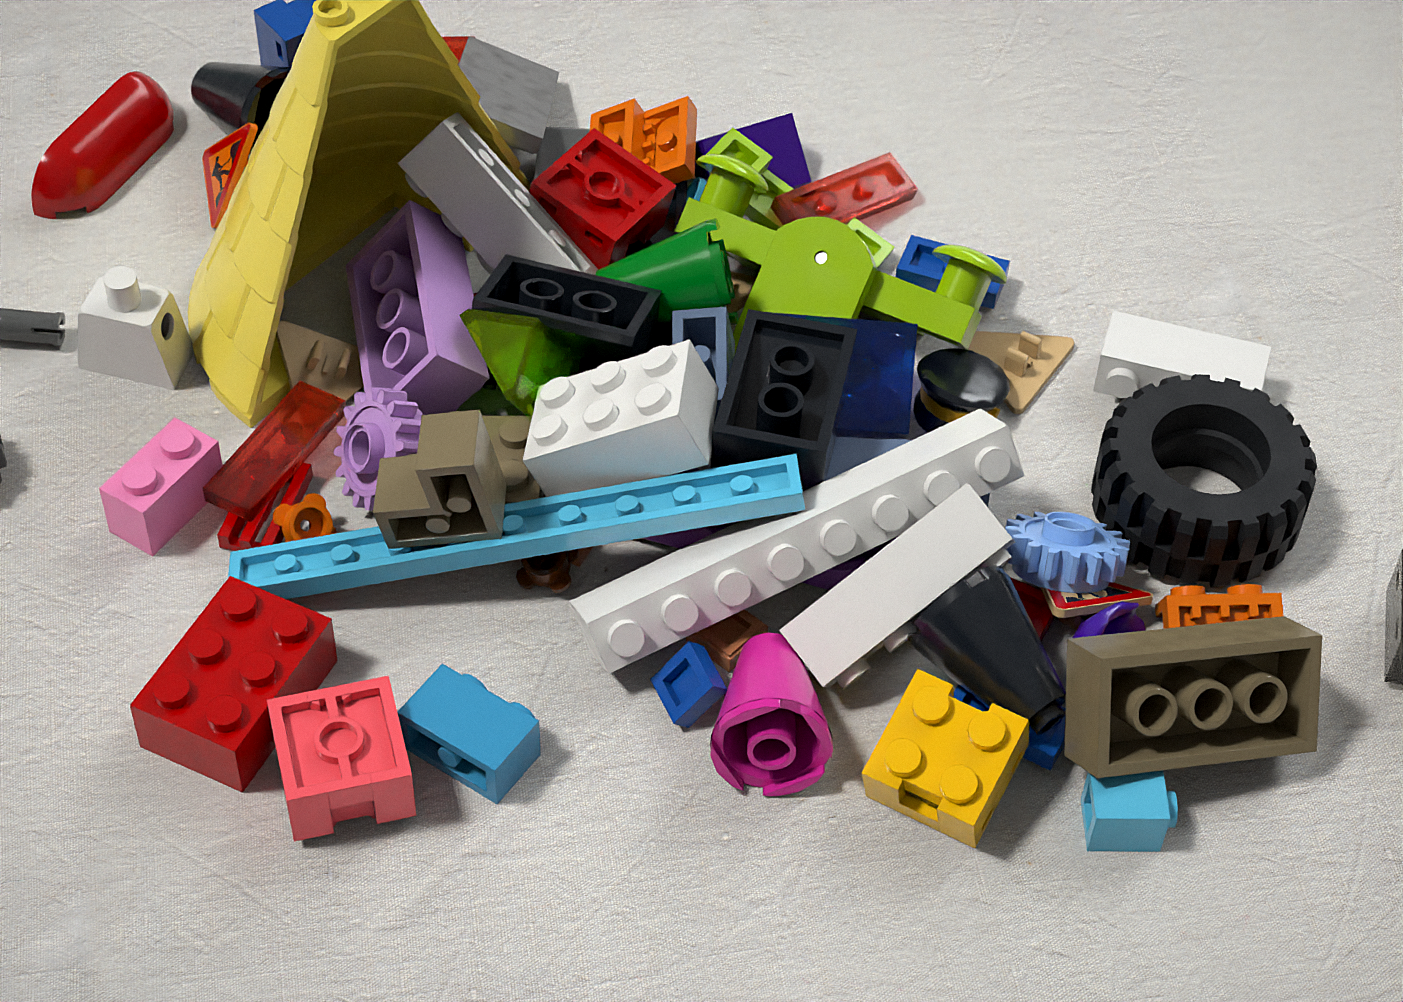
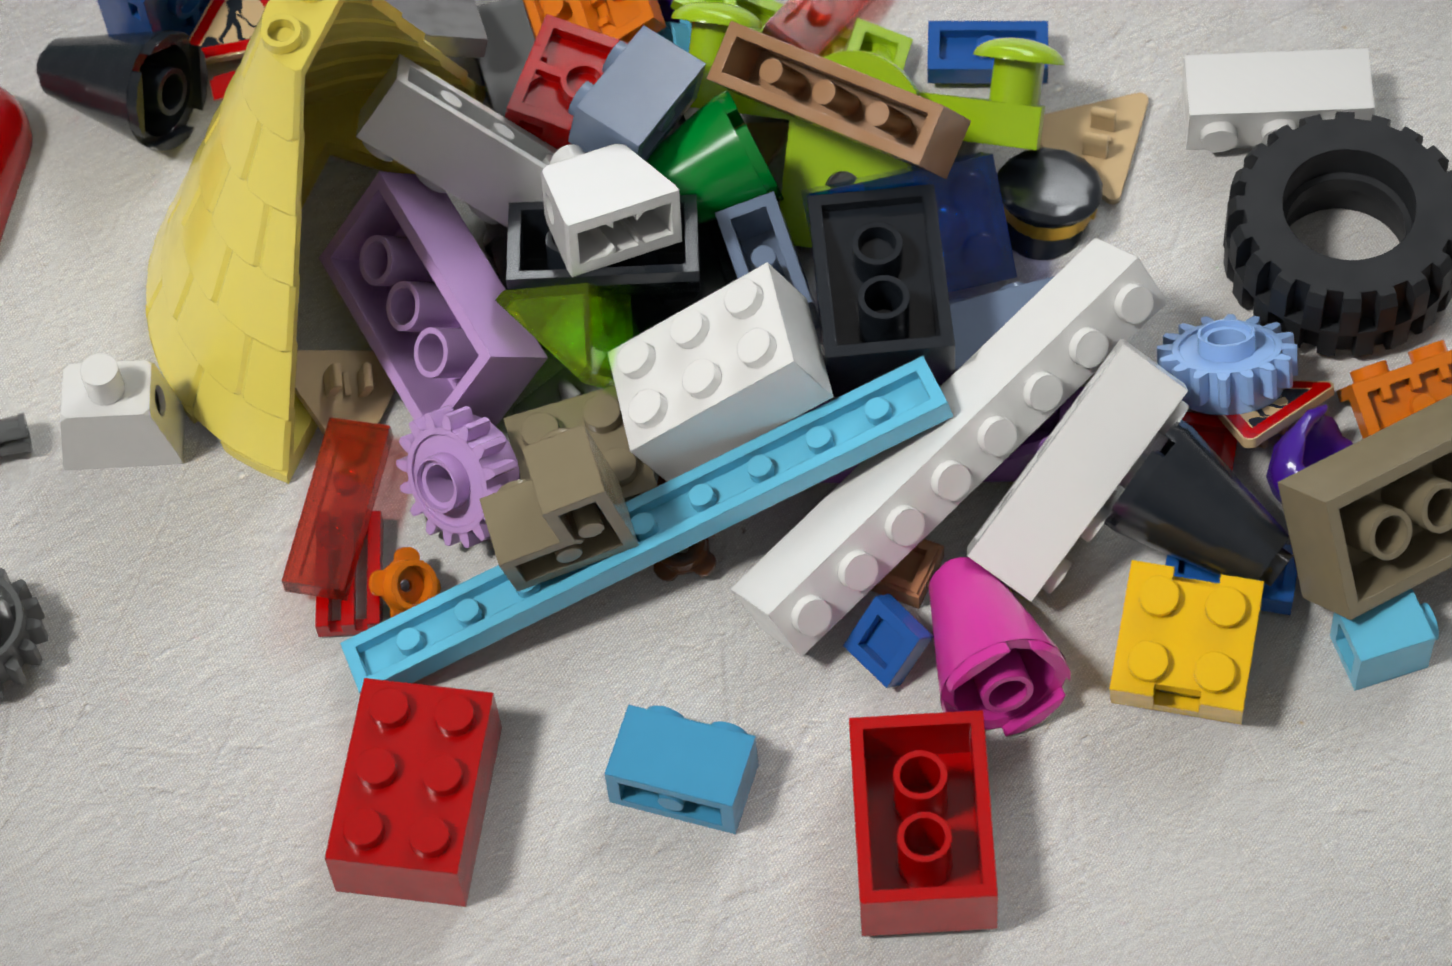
camera: 10 degrees left, 10 degrees up
(160, 486) = (234, 590): bright pink brick -> none
(223, 168) = (124, 175): piece -> none
(341, 756) = (564, 840): coral piece -> none
(580, 270) = (607, 206): none -> white torso
(636, 205) = (637, 97): none -> brick
(655, 837) = (923, 823): none -> red brick
(803, 244) = (839, 99): none -> medium nougat brick

